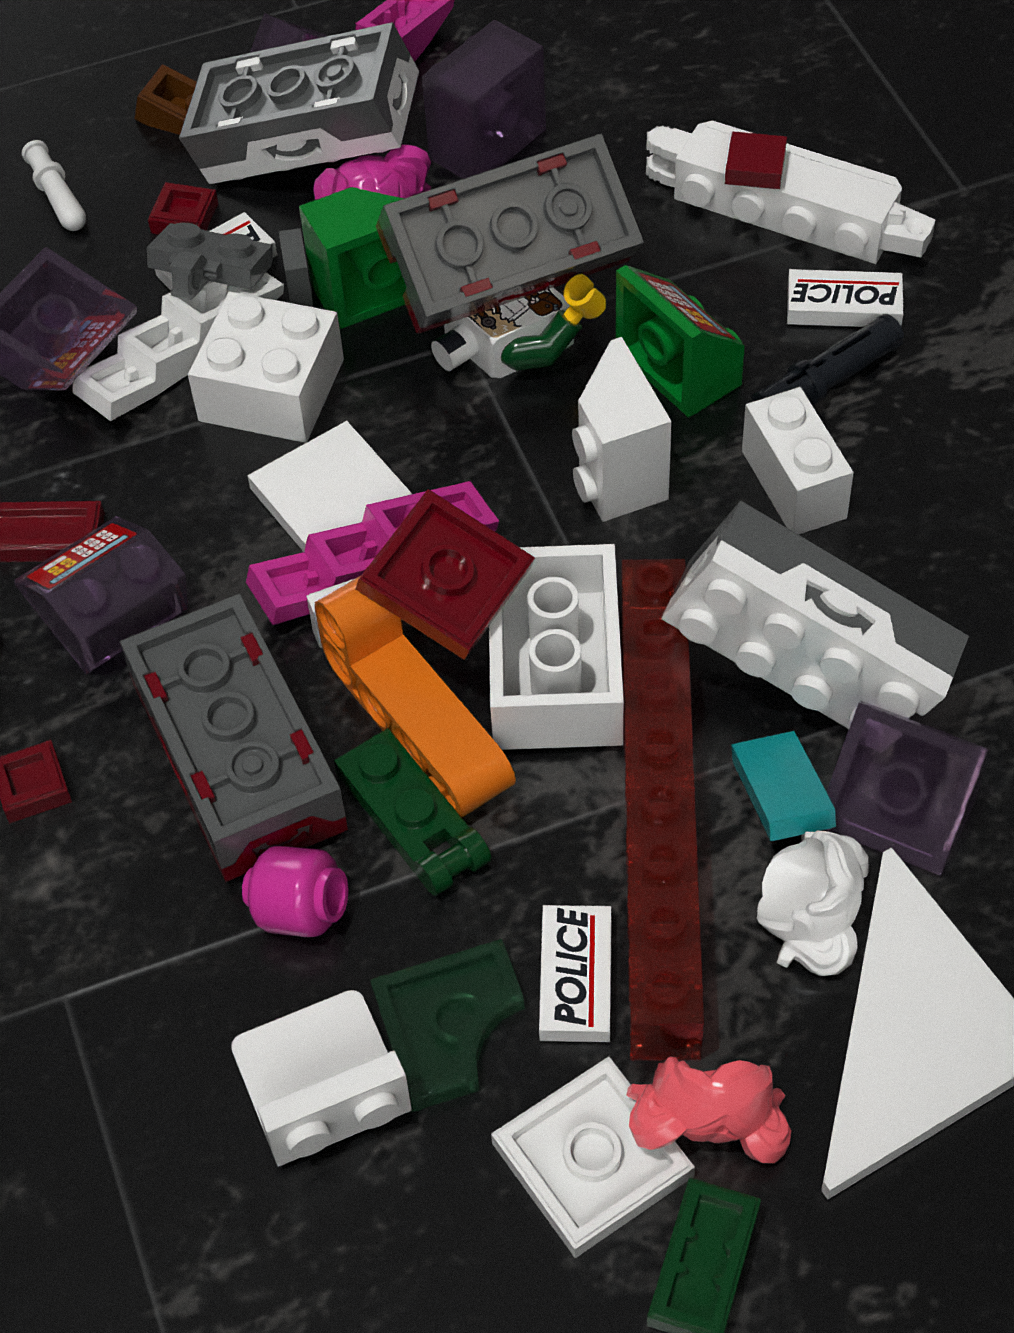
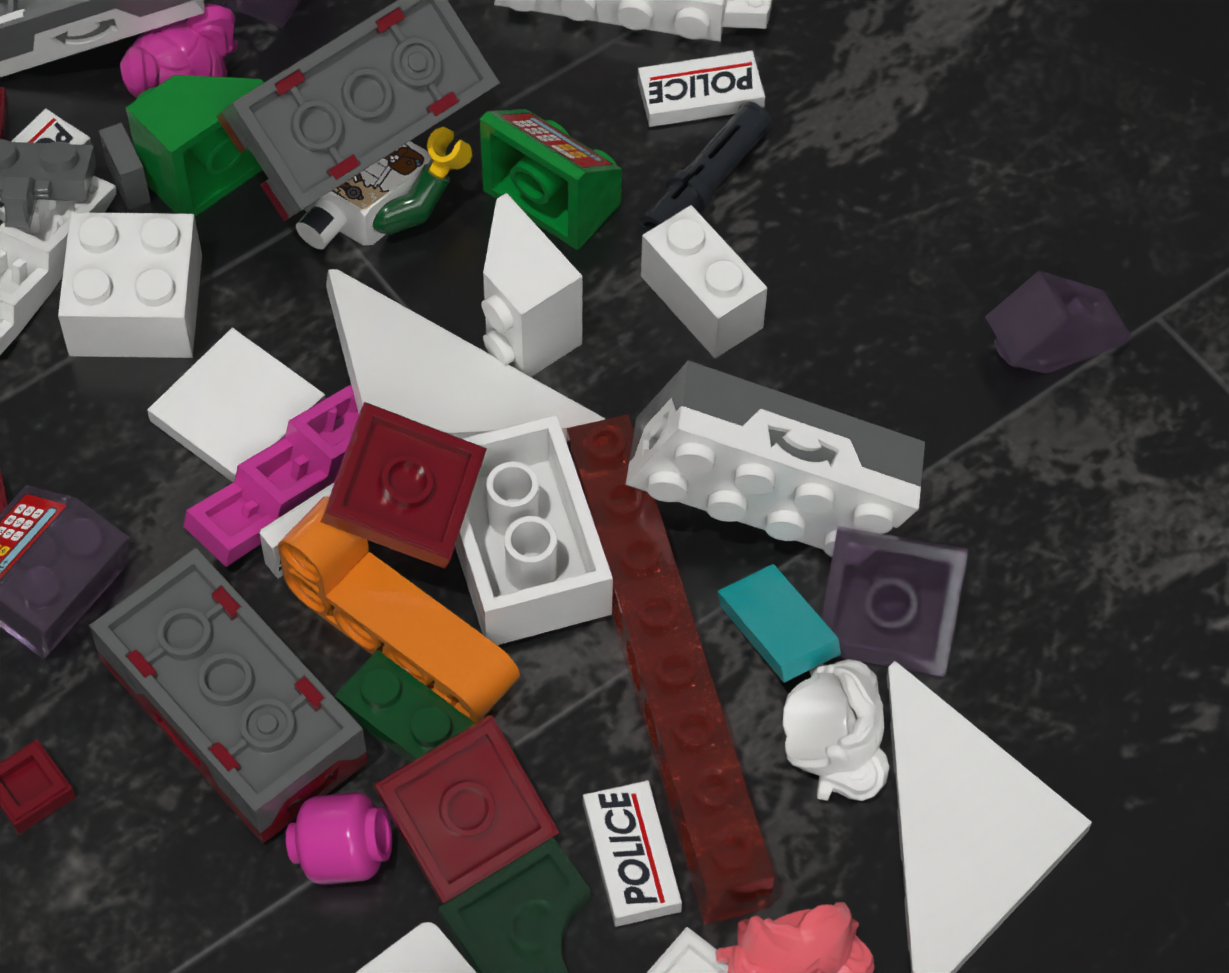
camera: 20 degrees left, 5 degrees up
(422, 890) = (465, 809): none -> dark red tile
(517, 492) = (431, 373): none -> white tile

